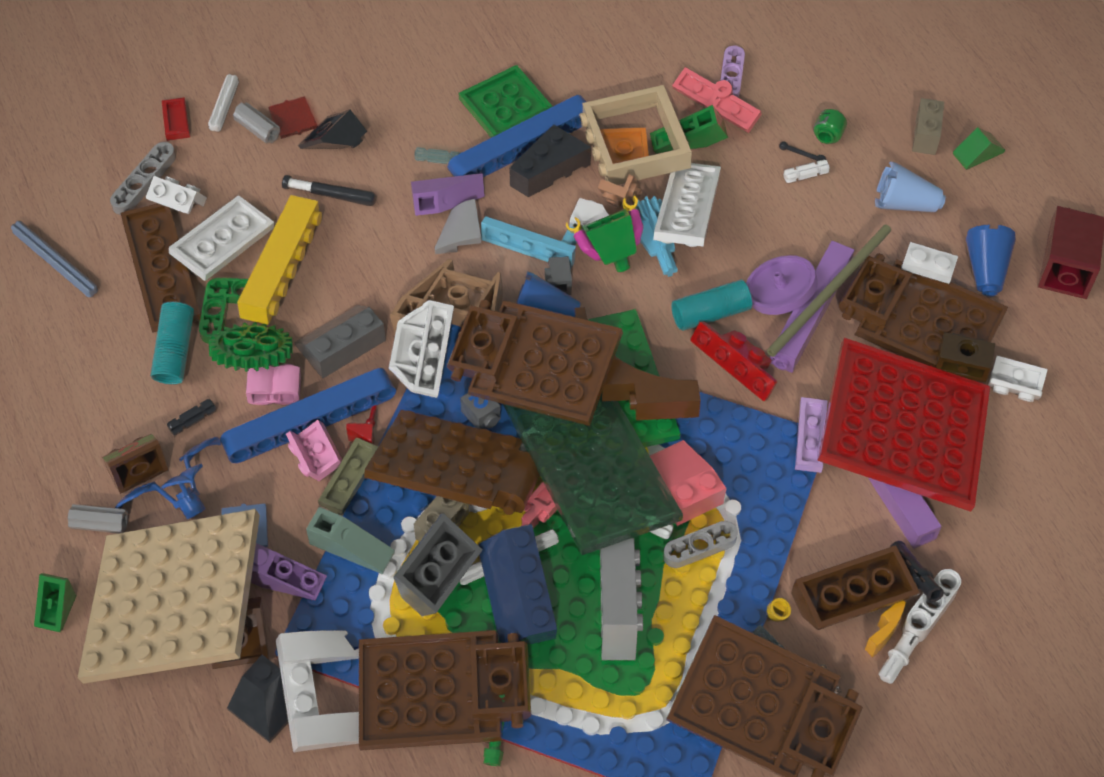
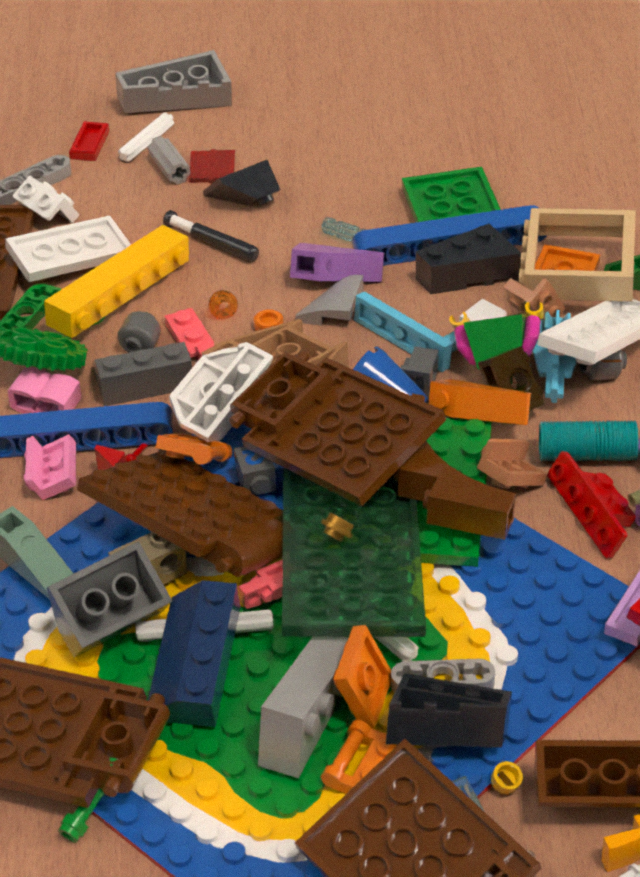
camera: 25 degrees right, 15 degrees down
(226, 44) = (175, 85): none -> light grey wedge
(321, 304) = (139, 332): none -> dark grey head
(347, 477) = (61, 503): olive plate -> none
(361, 292) = (187, 328): none -> coral hinge
(373, 256) = (220, 297): none -> clear orange plate
(416, 262) = (267, 318): none -> orange tile
(419, 406) = (203, 452): none -> orange plate
(579, 449) = (337, 527): none -> pearl gold plate
(619, 297) = (480, 401): none -> orange slope
(637, 272) = (516, 363): none -> dark brown brick
(652, 567) = (363, 676): none -> orange plate
(667, 348) = (506, 464): none -> nougat bracket
(689, 480) = (458, 610): coral slope -> none
(689, 631) = (359, 733): none -> orange plate
(724, 577) = (447, 713): none -> black wedge

